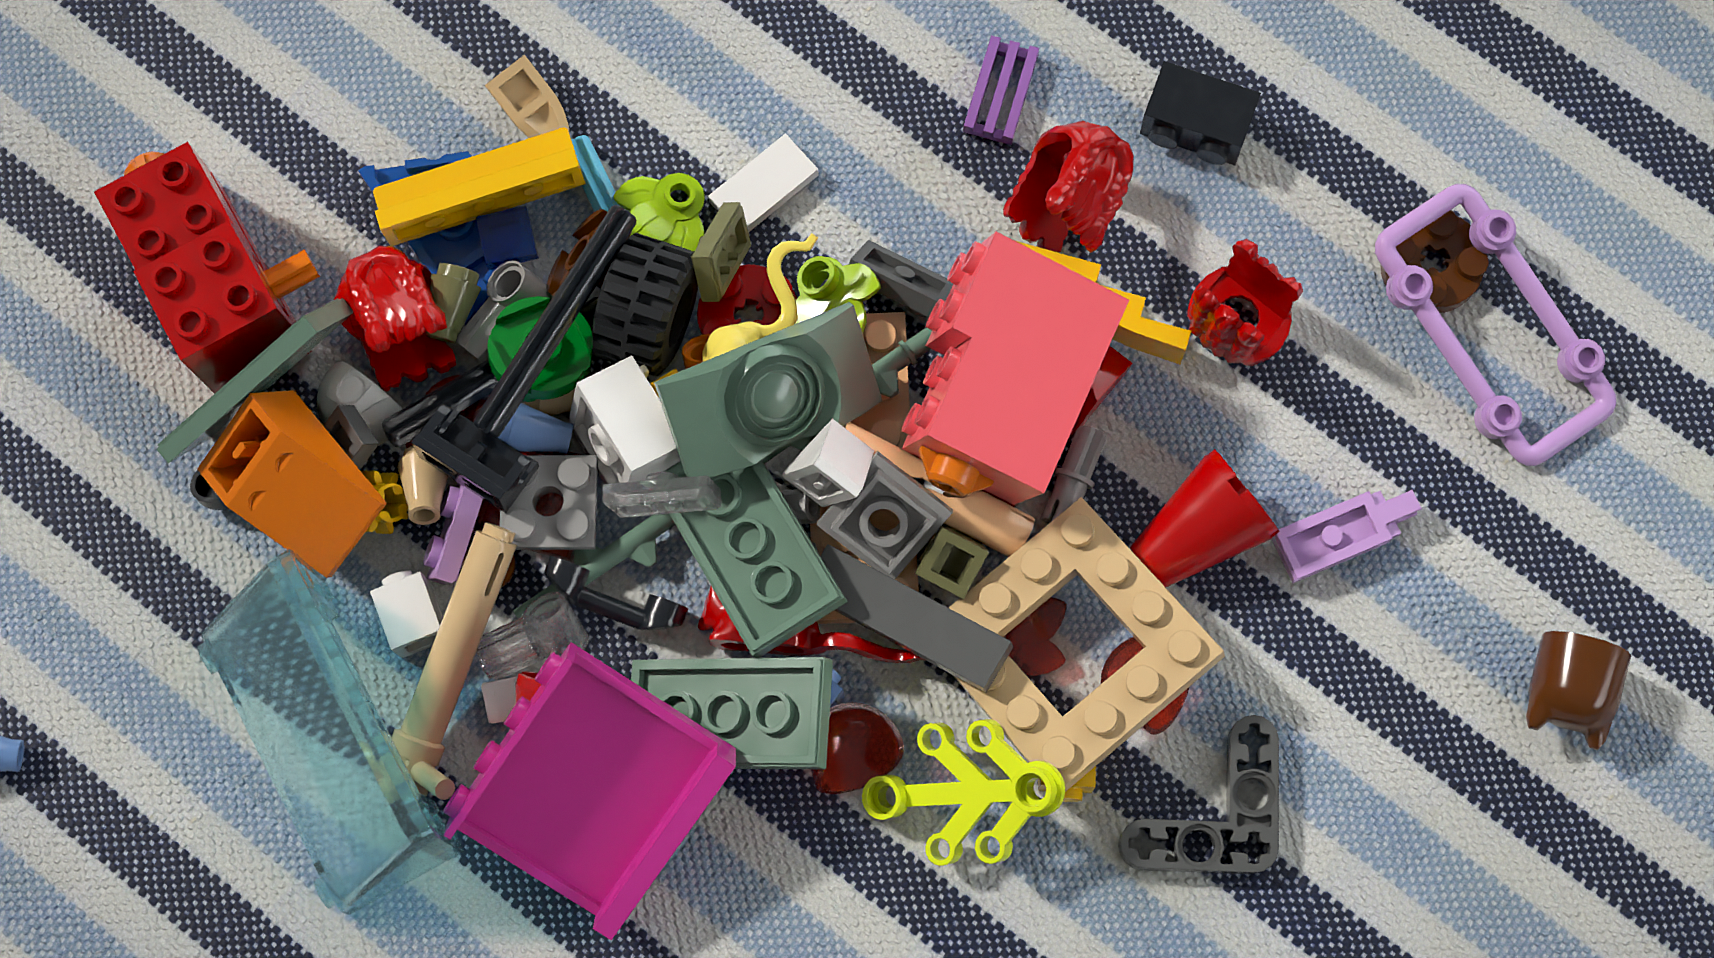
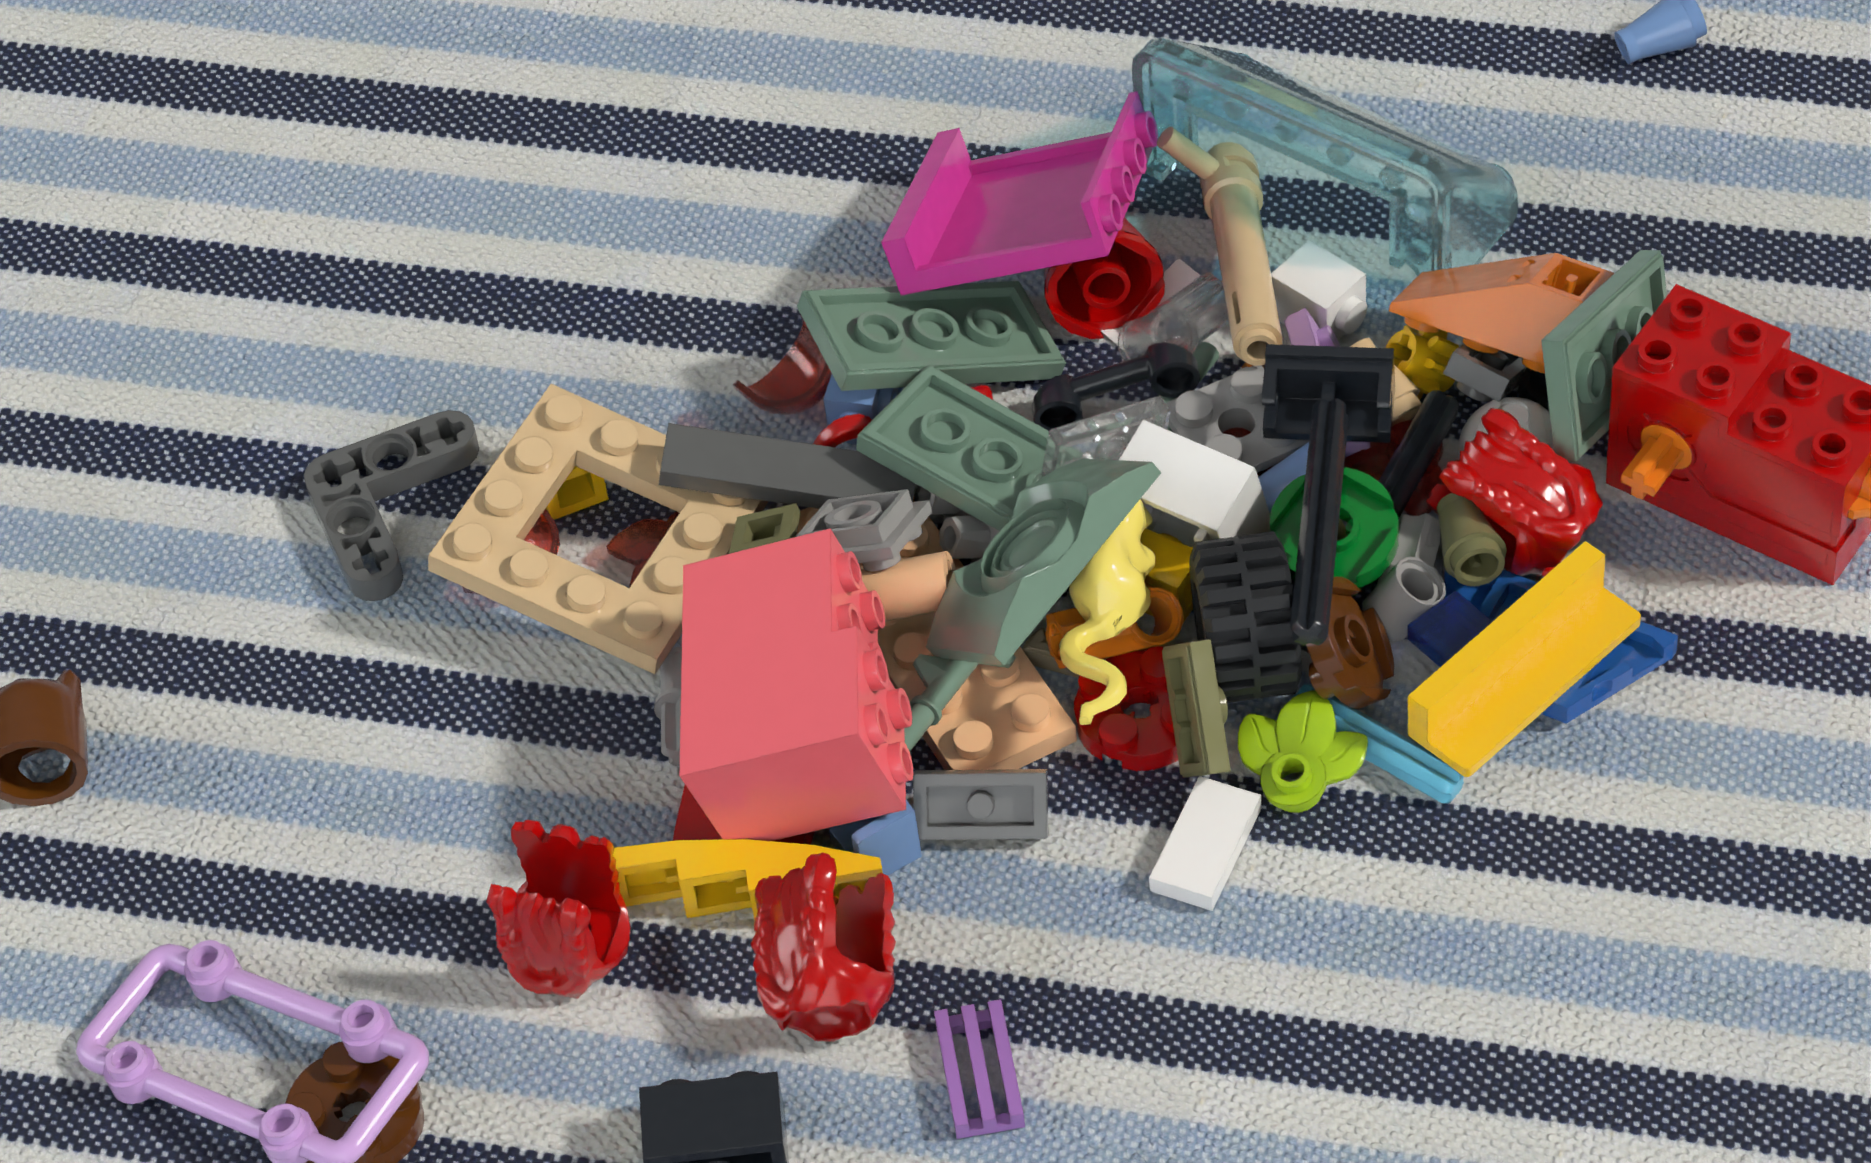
camera: 155 degrees right, 25 degrees down
(527, 99) = (1537, 796): tan plate -> none
(831, 466) = (930, 509): white slope -> none
(844, 284) = (1045, 733): lime plate -> none
(974, 792) = (589, 366): neon yellow plant -> none
(1203, 524) = (503, 712): red cone -> none
(1342, 532) = (348, 785): lavender hinge -> none

